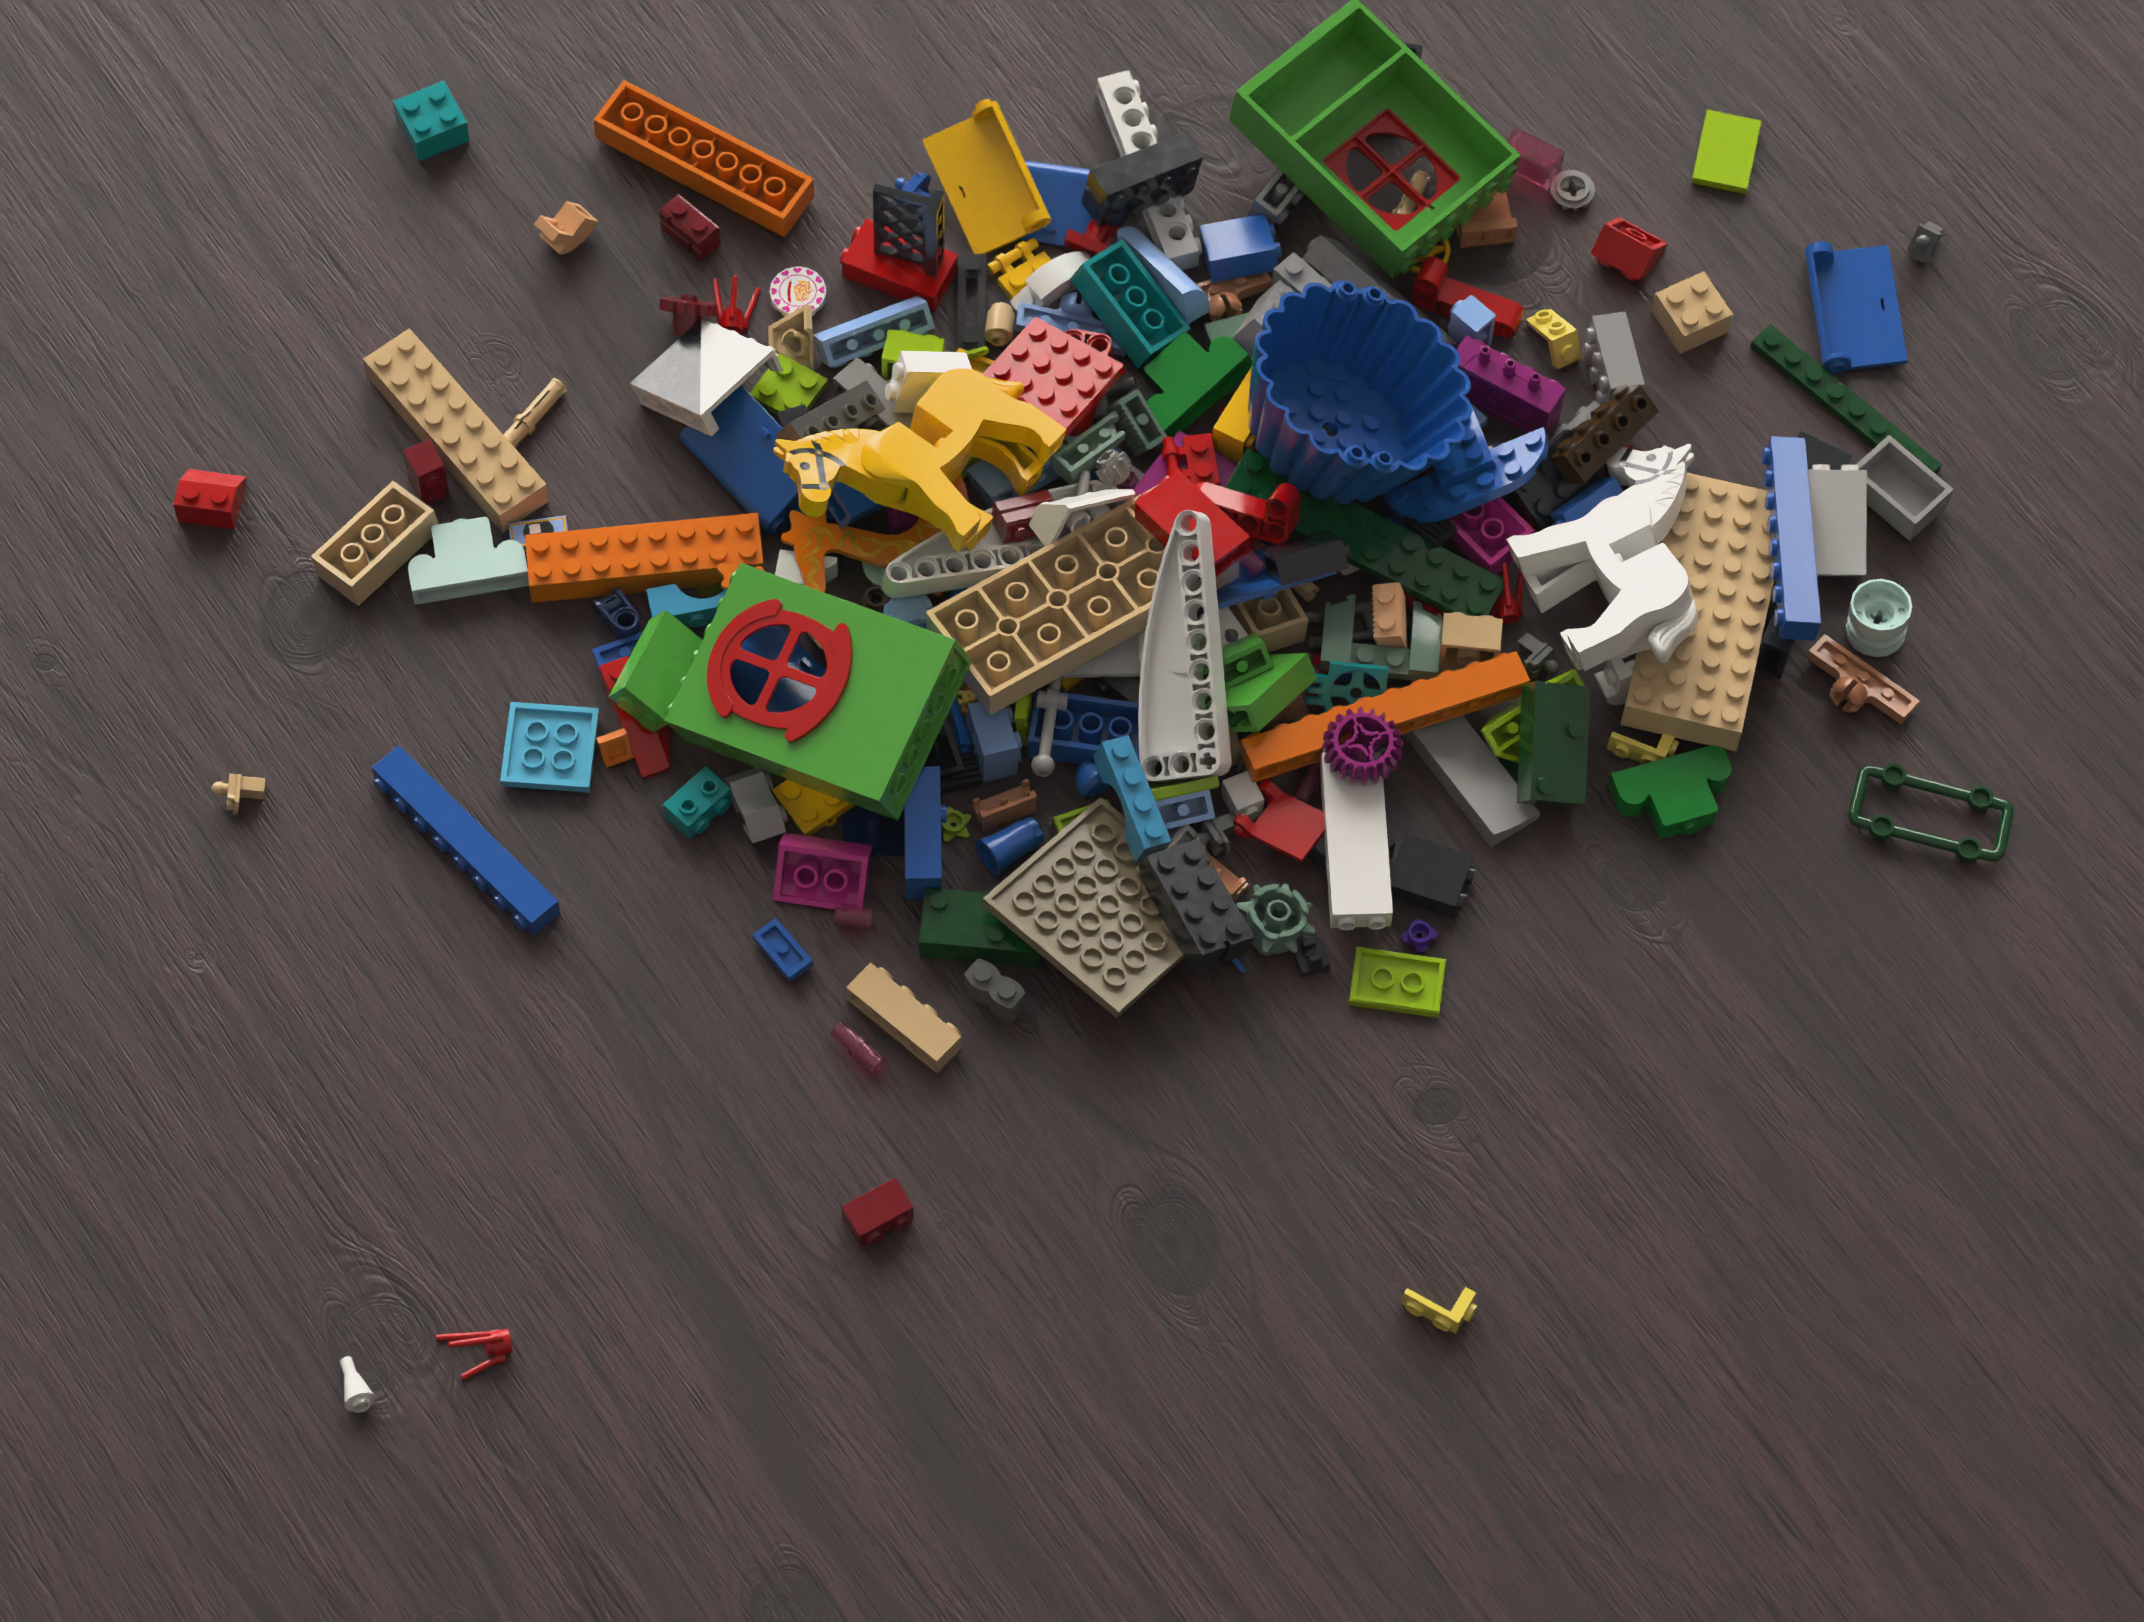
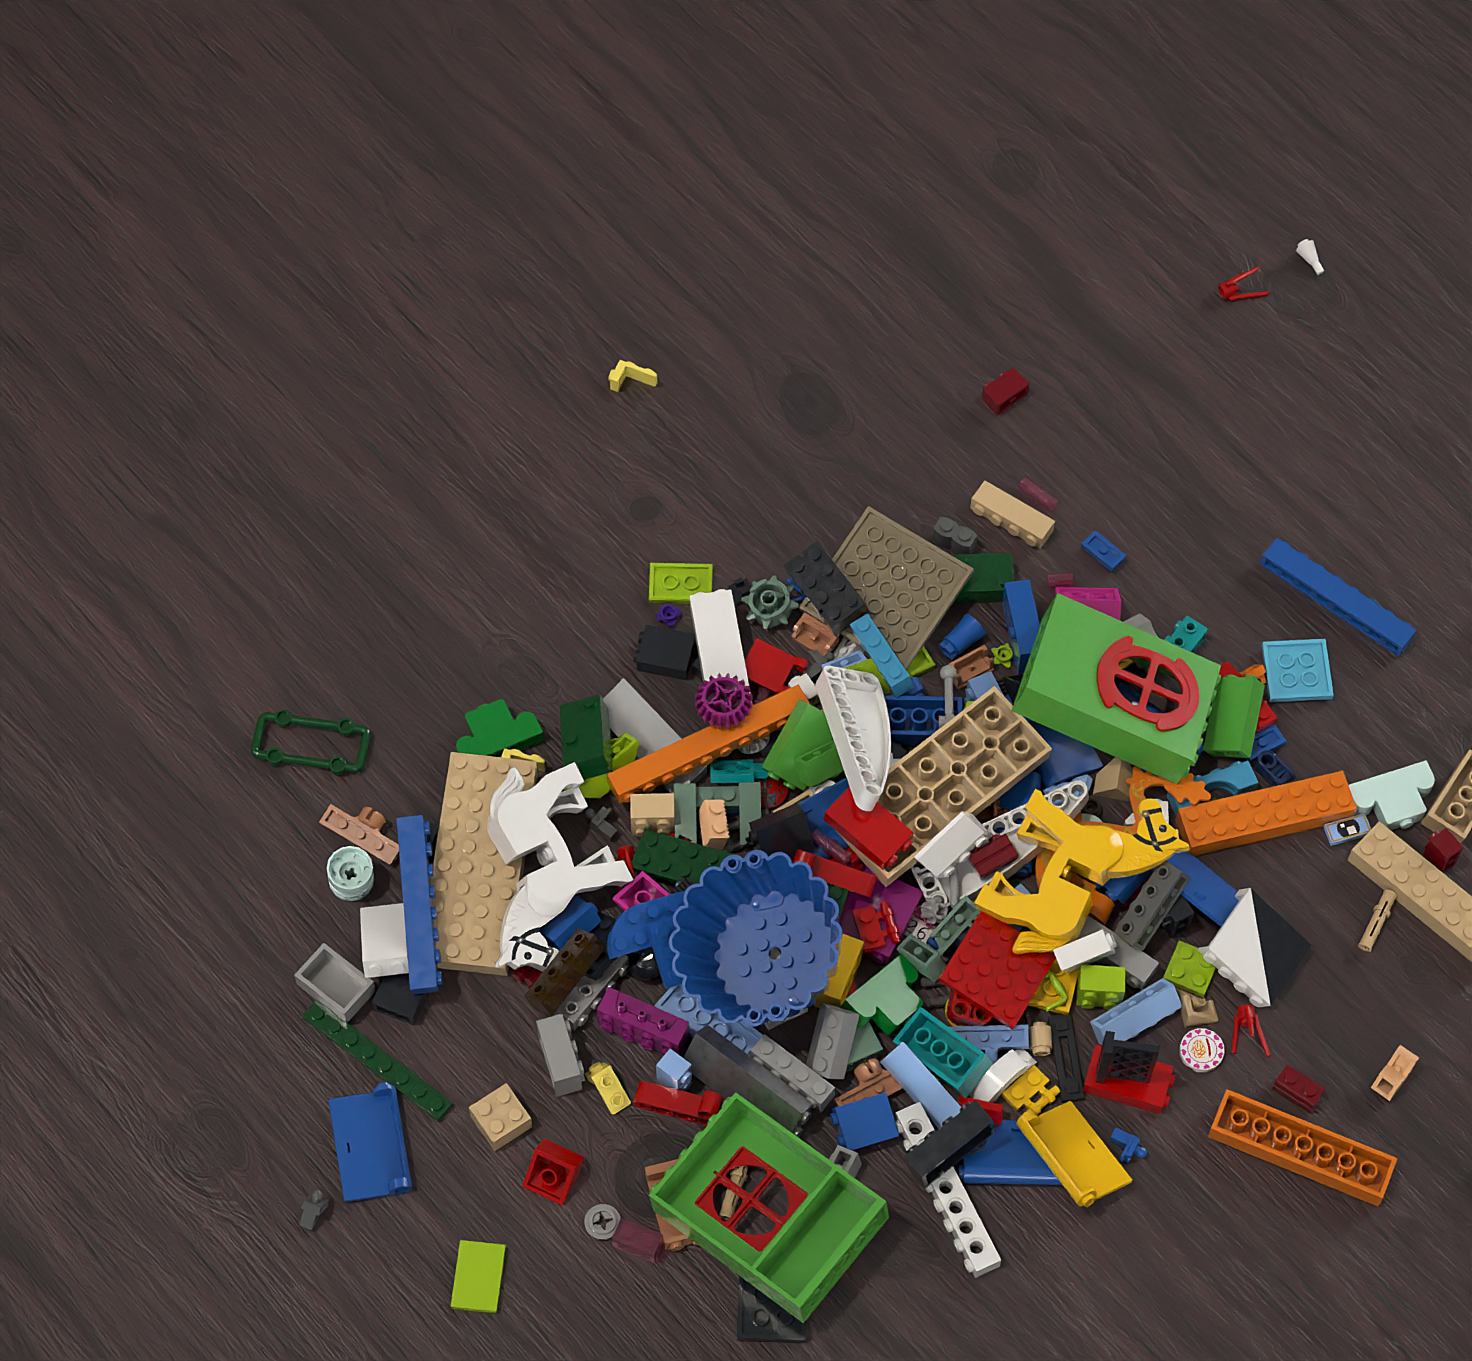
camera: 175 degrees right, 0 degrees up
(686, 311) = (1282, 1013): dark red plant -> none

